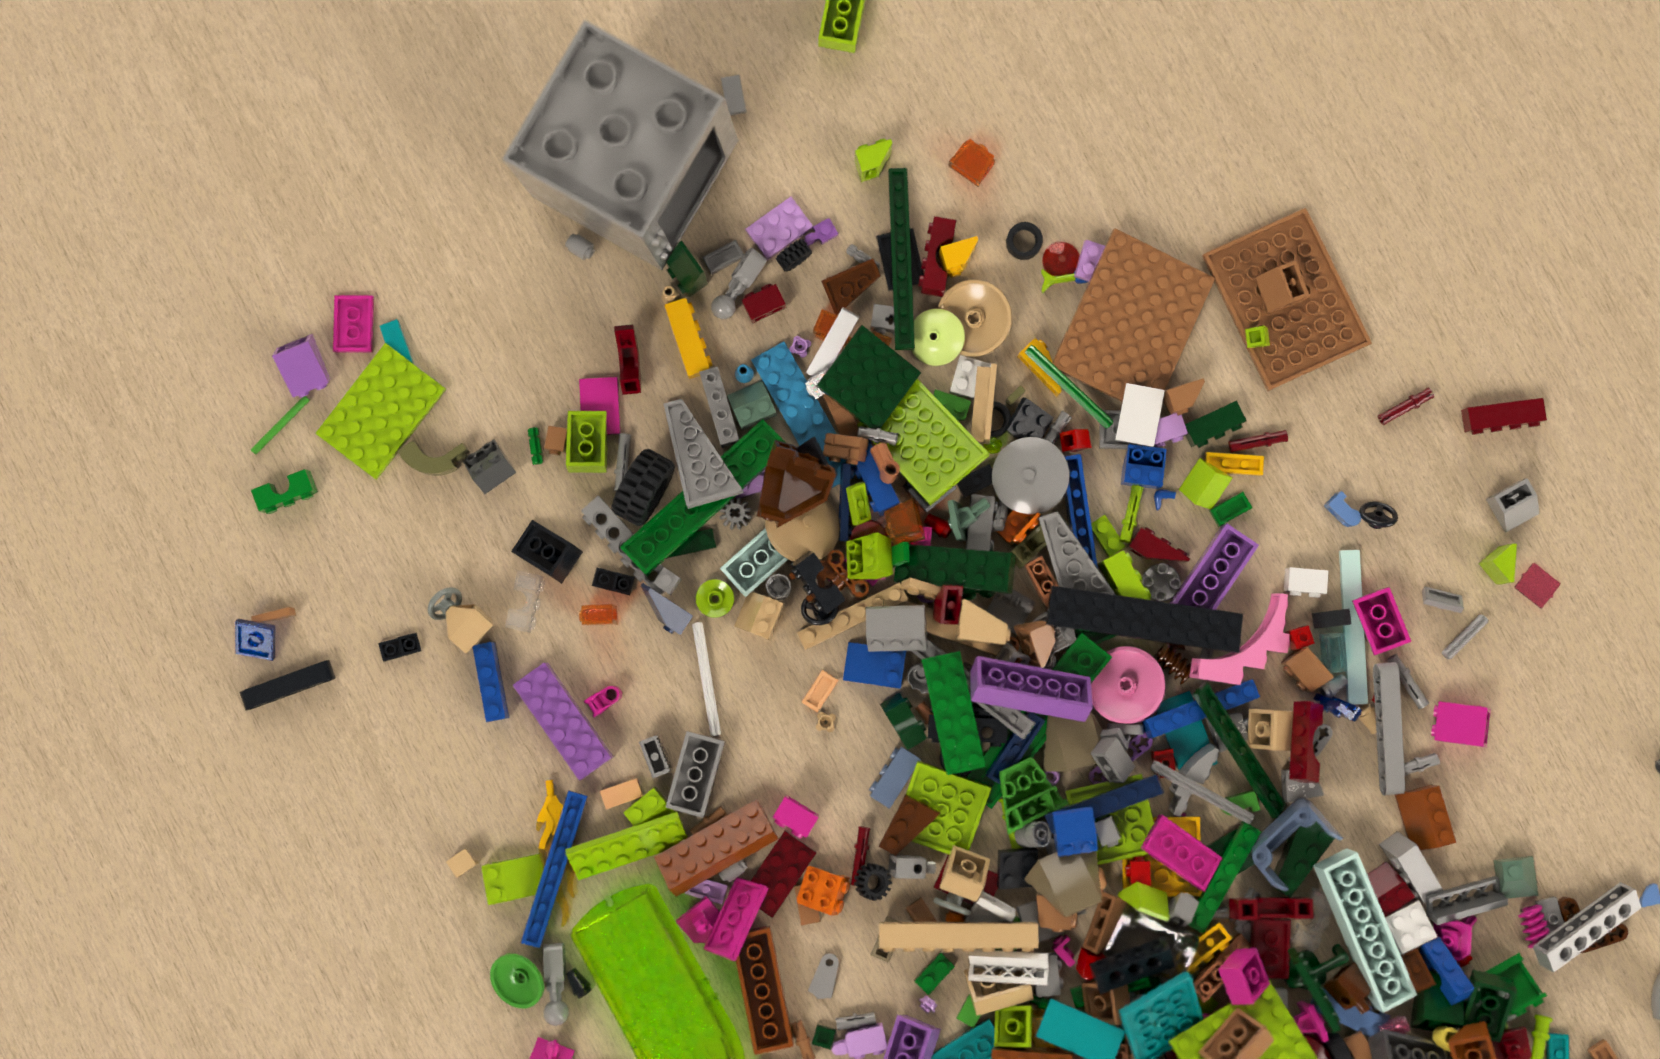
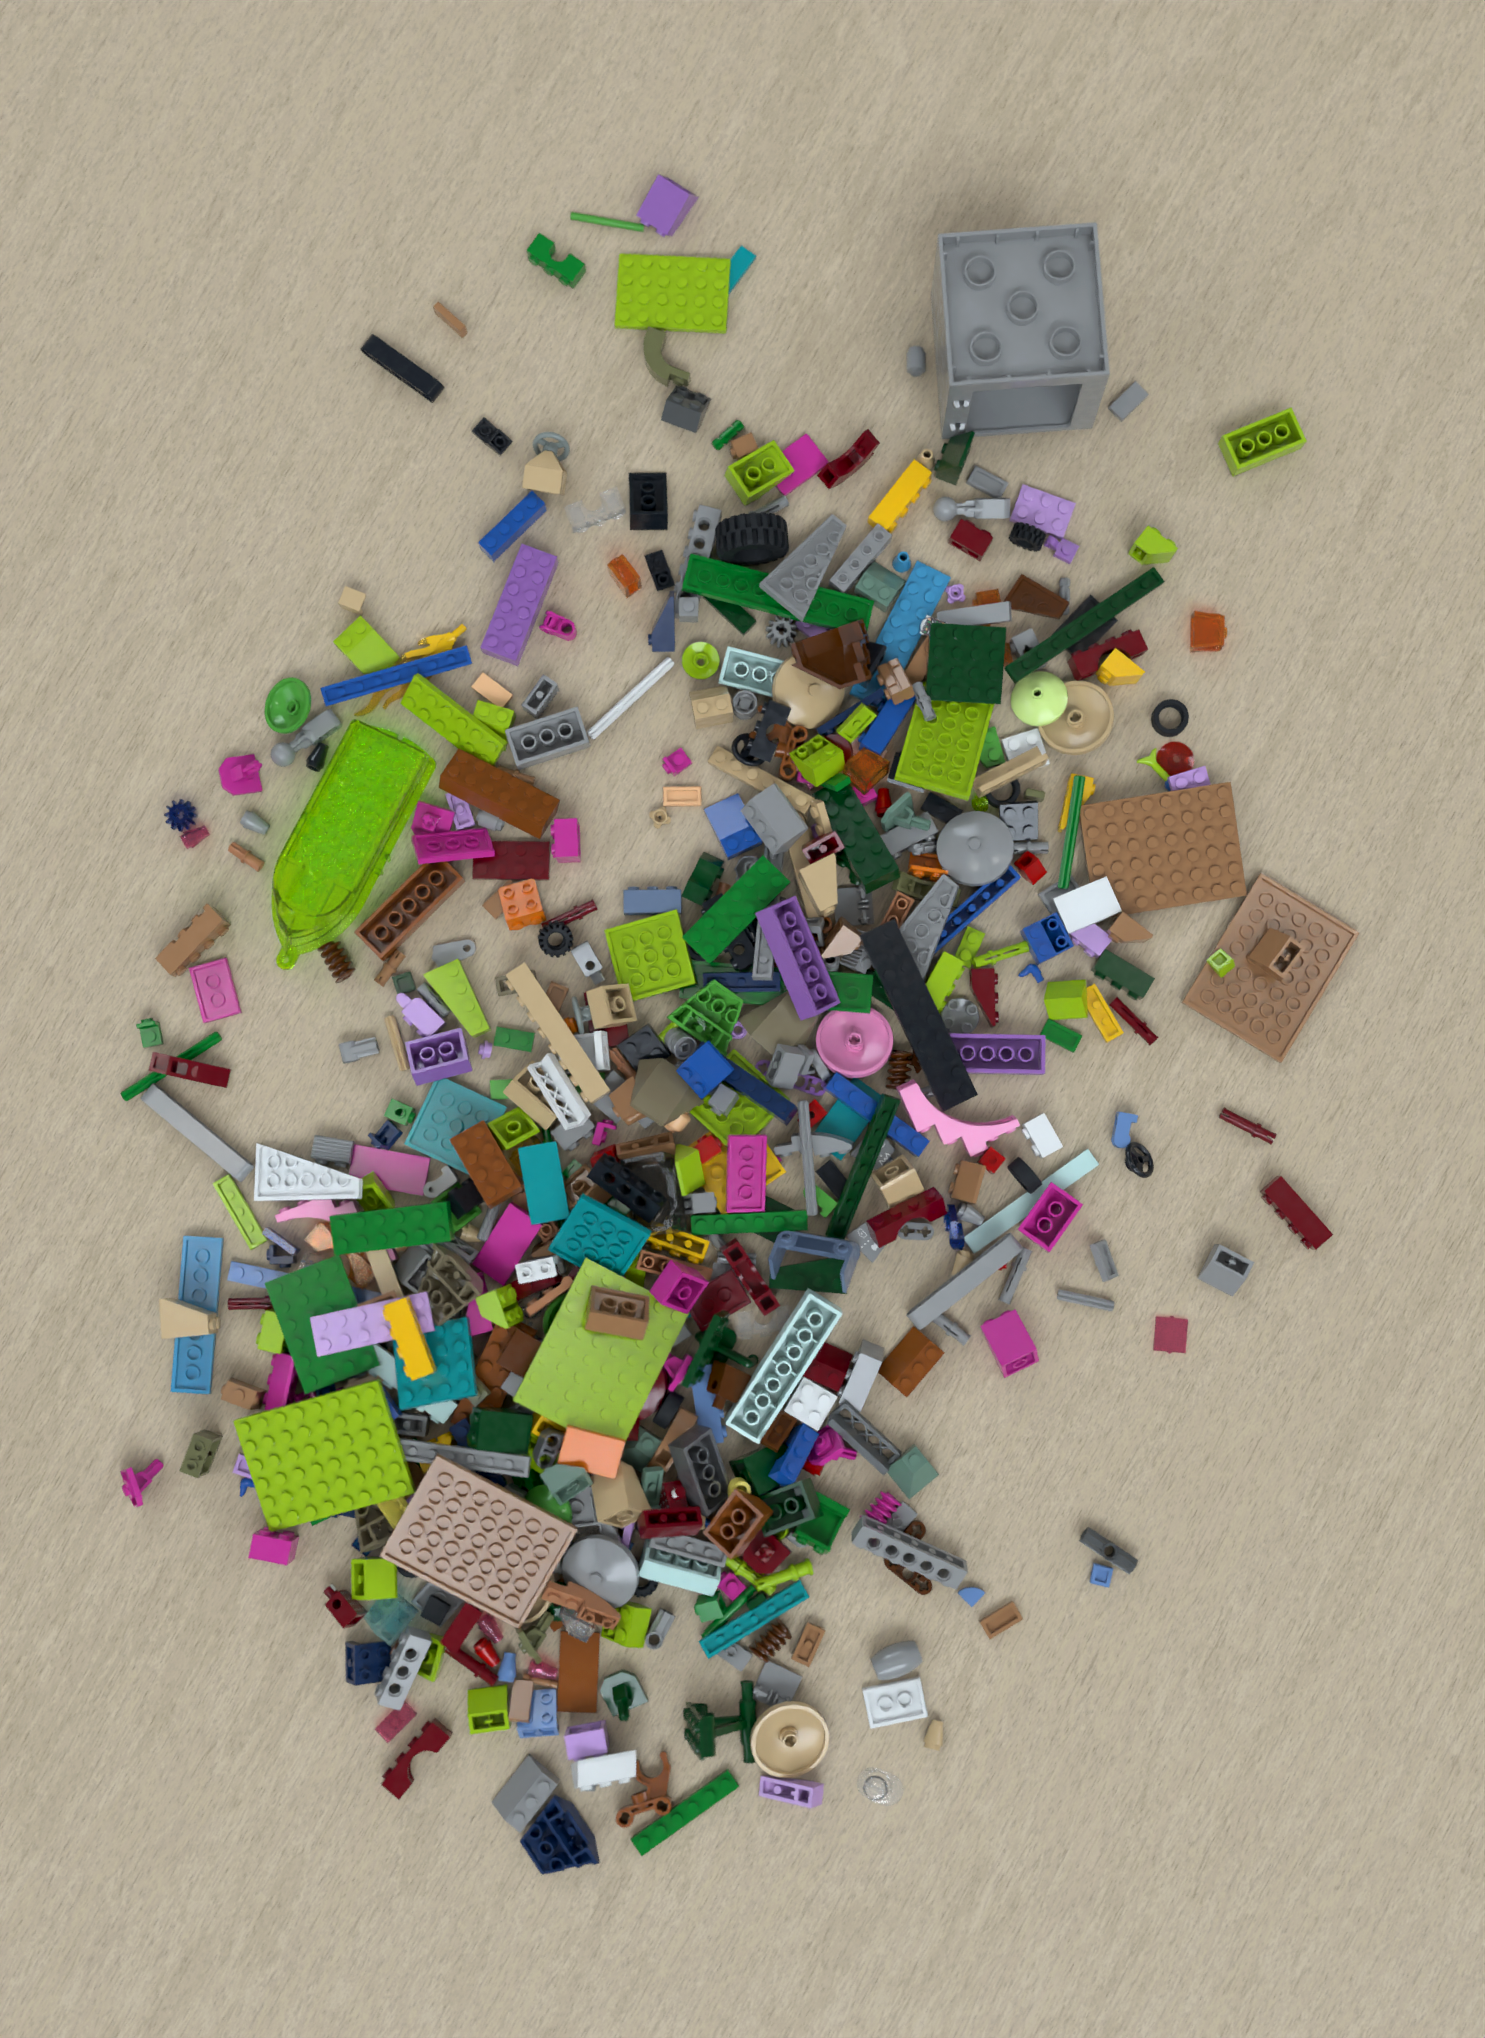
camera: 55 degrees right, 0 degrees up
(255, 639) = (421, 317): clear blue tile -> none
(353, 324) = (728, 224): dark pink tile -> none
(787, 677) = (676, 762): none -> dark pink bracket
(868, 997) = (457, 992): none -> lime wedge
(885, 462) = (904, 720): nougat piece -> none
(906, 824) = (622, 935): reddish brown wing -> none
(1017, 894) = (622, 1064): none -> nougat axle
(1228, 780) = (832, 1178): none -> black tile
(1333, 652) = (997, 1195): clear light blue brick -> none
(1397, 1024) = (723, 1442): clear pink cone -> none
(1501, 564) = (1166, 1287): lime slope -> none

